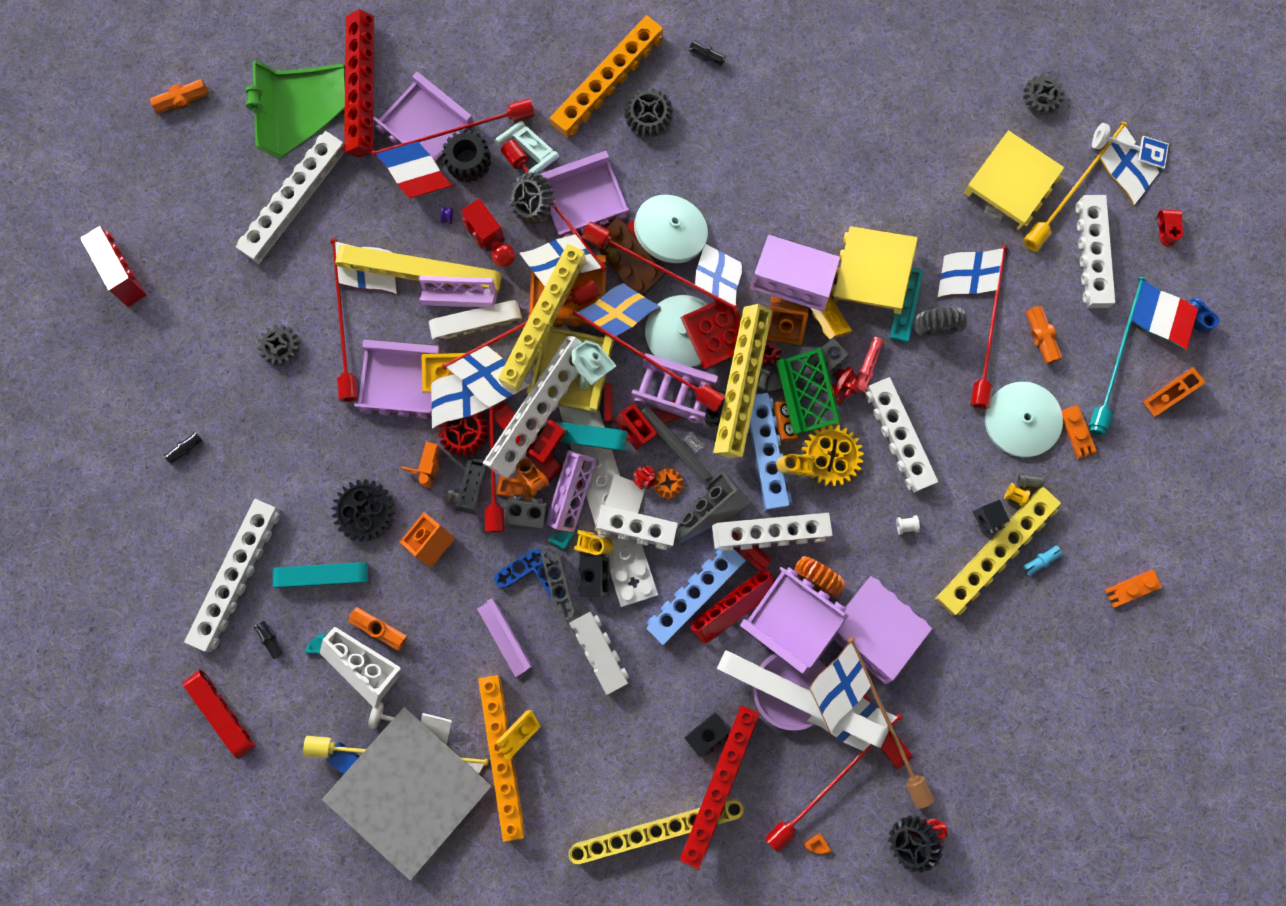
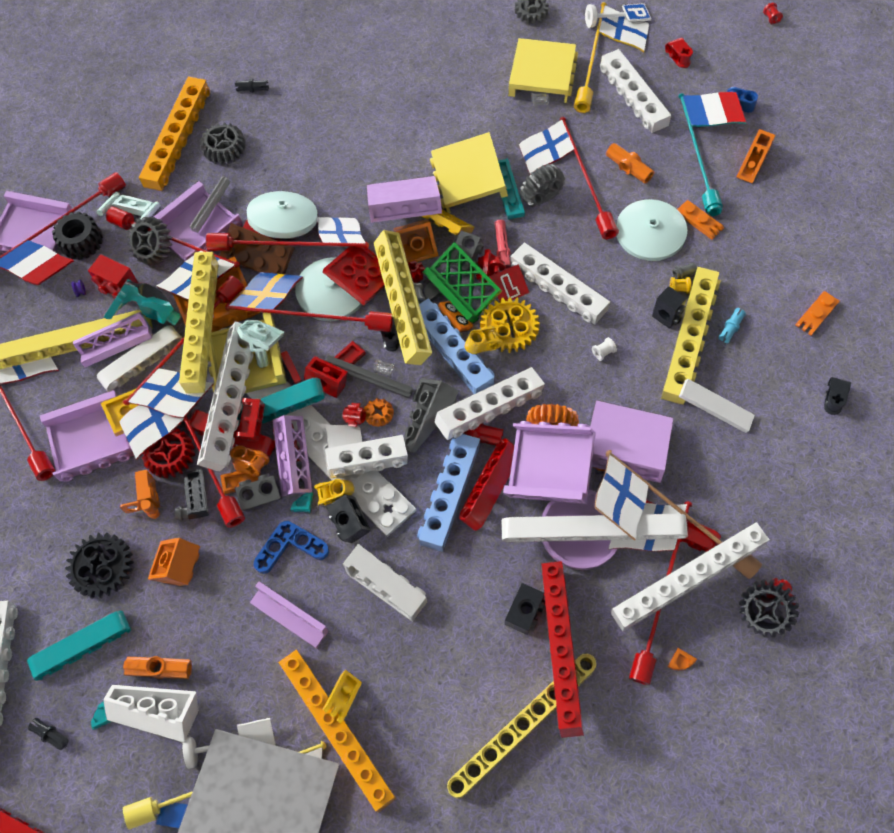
camera: 25 degrees left, 15 degrees down
(505, 267) = (149, 299): none -> teal hips
(560, 582) = (318, 539): dark grey beam -> none
(607, 181) = (210, 204): none -> light grey axle
(687, 373) = (346, 347): lavender fence -> none
(854, 412) = (511, 283): none -> red sticker
(863, 784) = (689, 576): none -> white brick
(979, 635) = (716, 405): none -> white tile
(1101, 677) = (836, 395): none -> black piece

